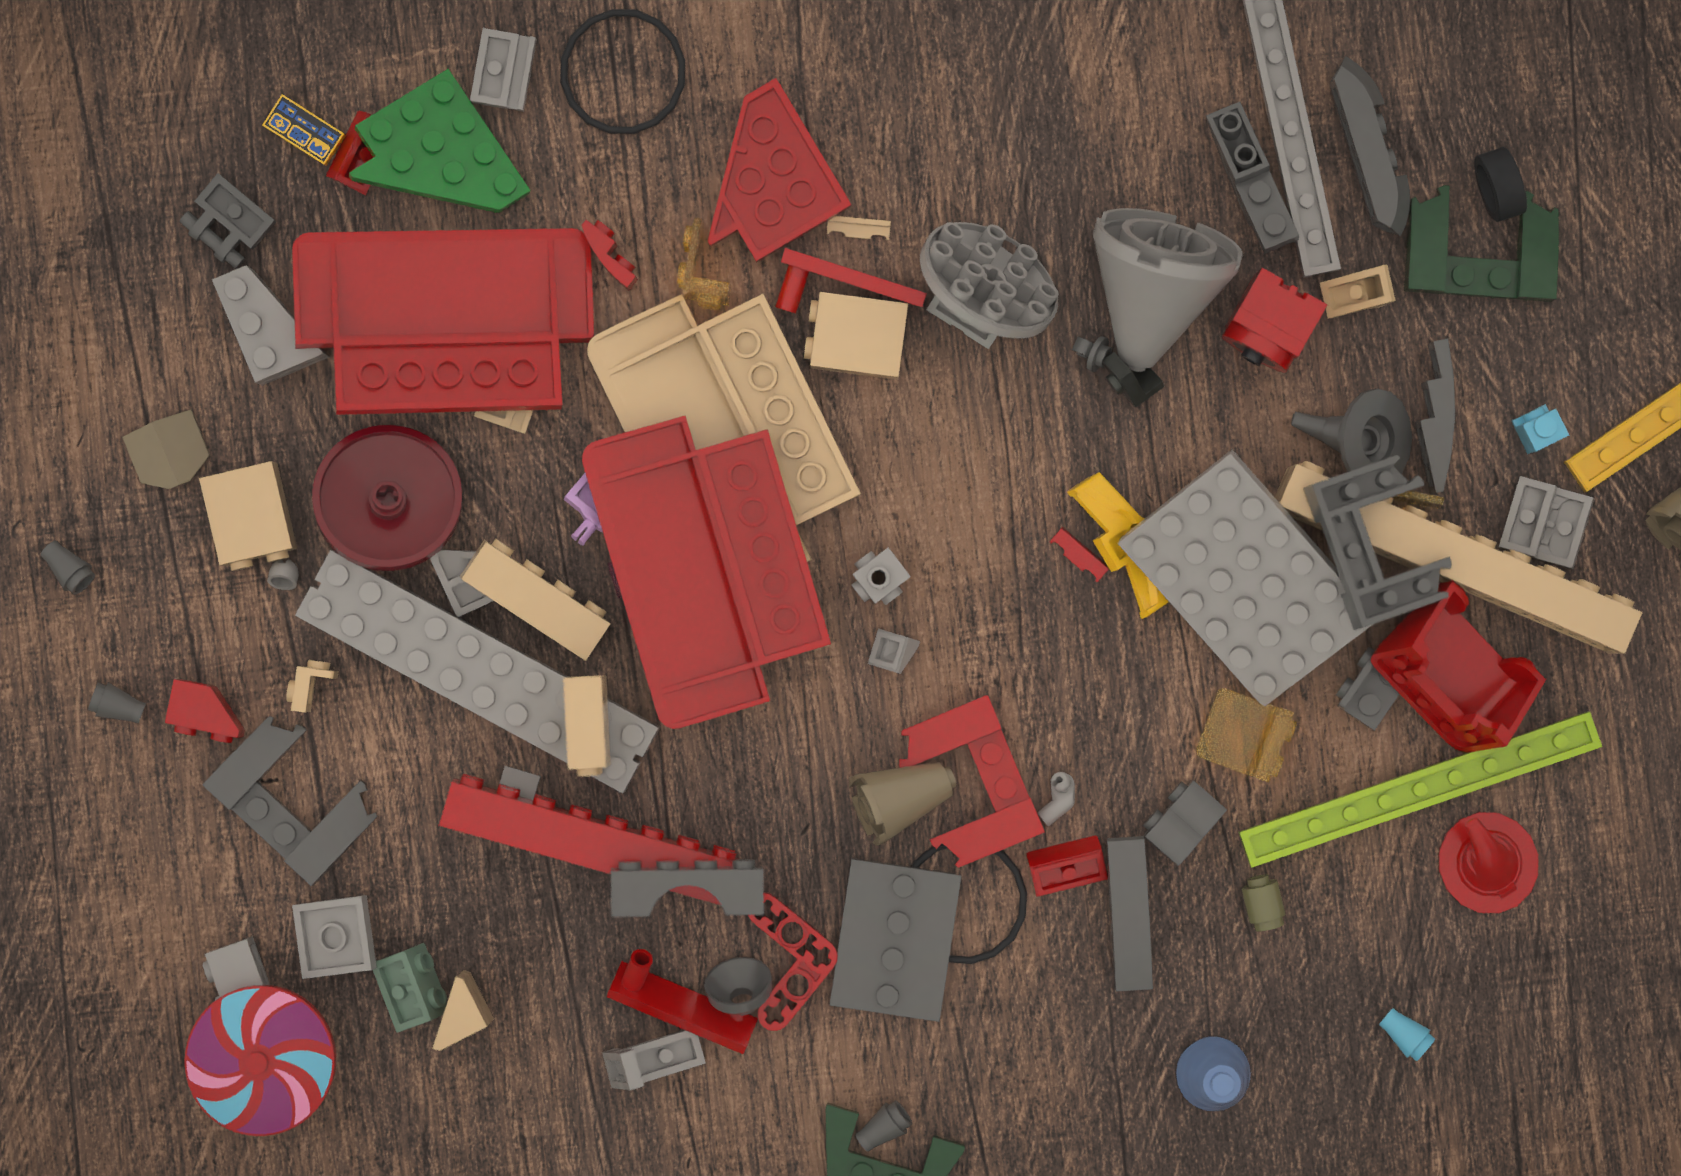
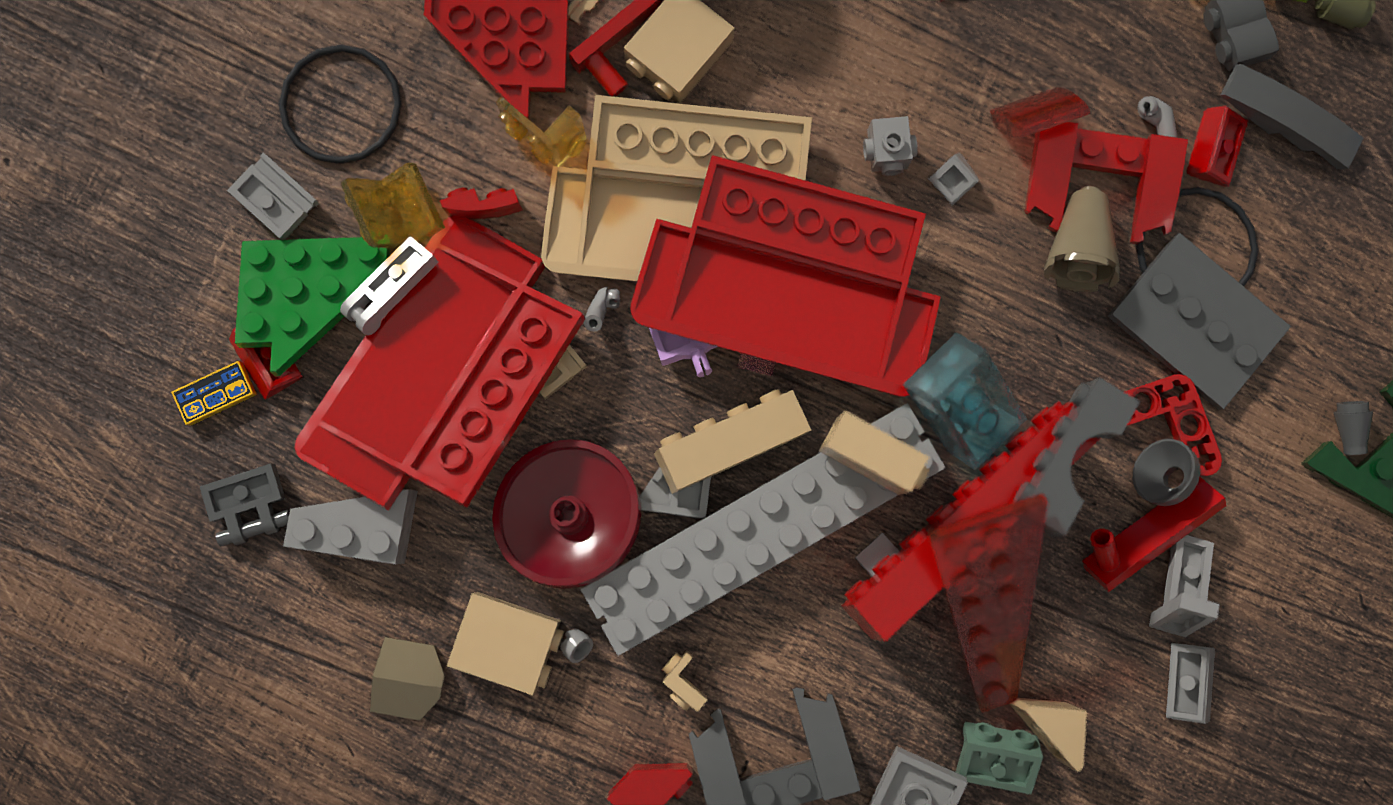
camera: 60 degrees left, 5 degrees down
(485, 222) = (387, 285): none -> plate
(535, 885) = (990, 586): none -> clear red wing
(555, 183) = (393, 208): none -> clear yellow bracket
(575, 1115) = (1190, 683): none -> light grey slope
(579, 412) = (598, 307): none -> light grey arm
(687, 775) = (965, 400): none -> clear light blue brick
(989, 688) = (1040, 112): none -> clear red slope

